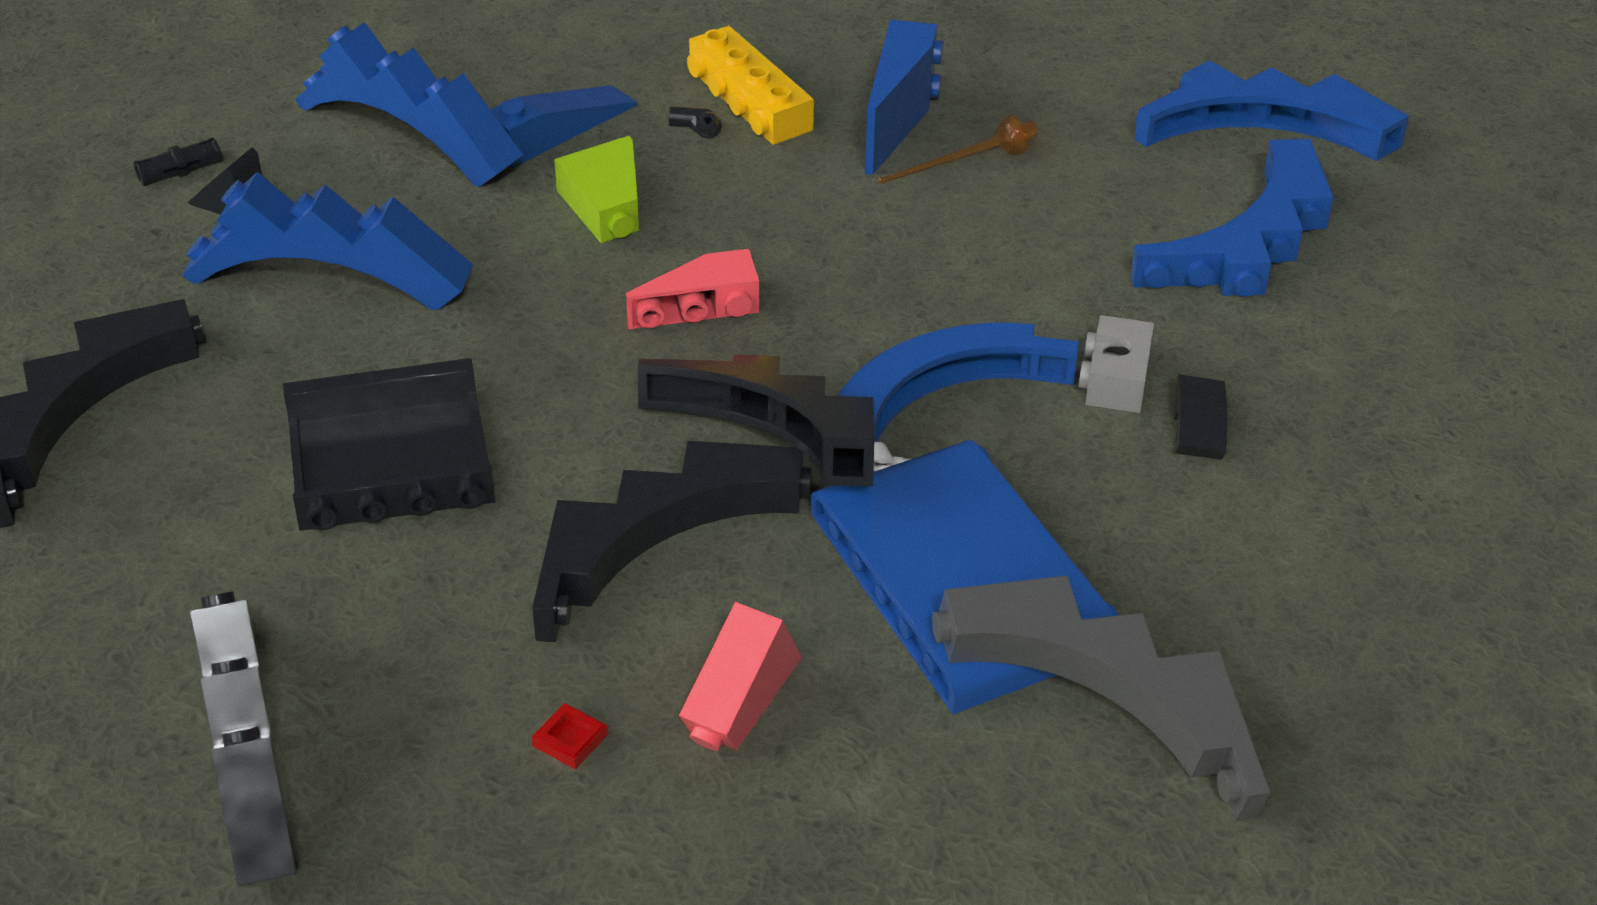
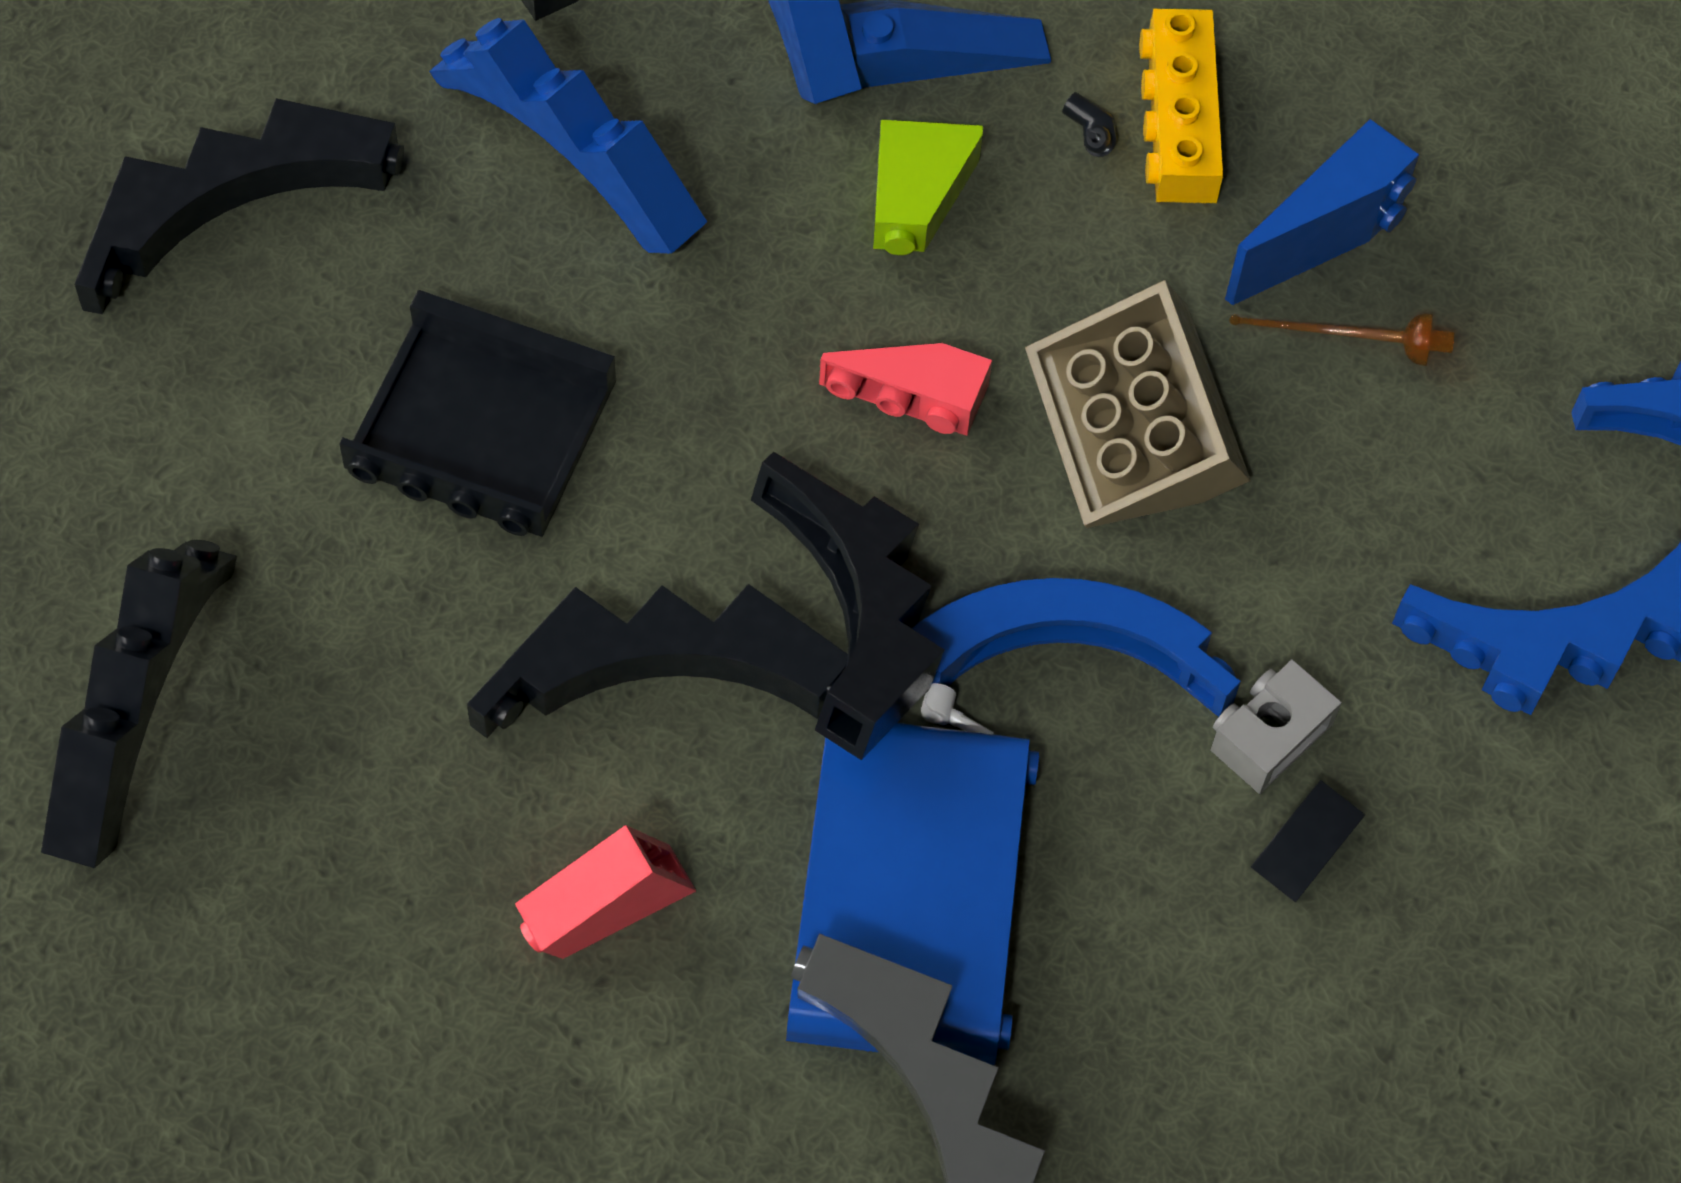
camera: 30 degrees right, 20 degrees up
(570, 736) = (425, 854): red tile -> none
(868, 240) = (1136, 410): none -> dark tan slope

